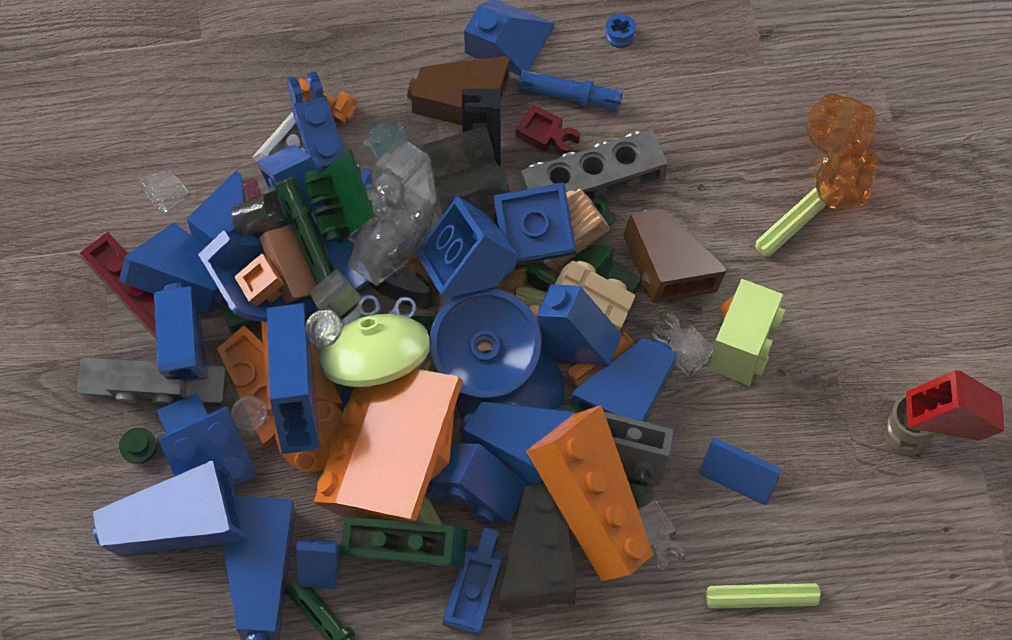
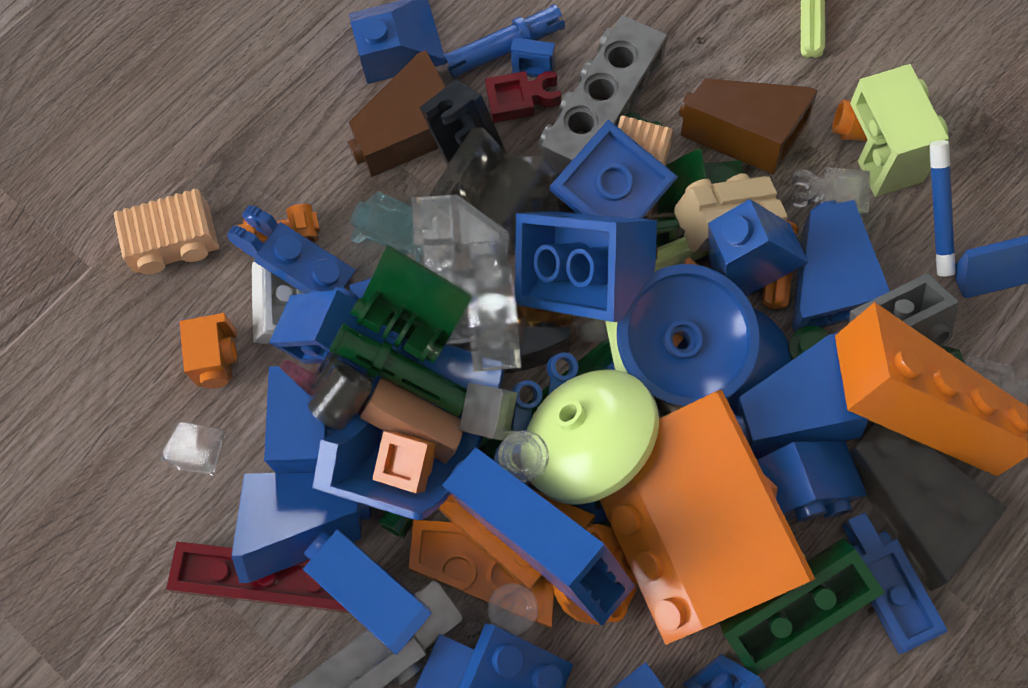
camera: 35 degrees left, 5 degrees up
(221, 139) = (208, 349): none -> orange brick
(260, 51) = (166, 232): none -> light nougat brick
(576, 114) = (532, 56): none -> blue tile
(723, 399) = (942, 207): none -> blue bar

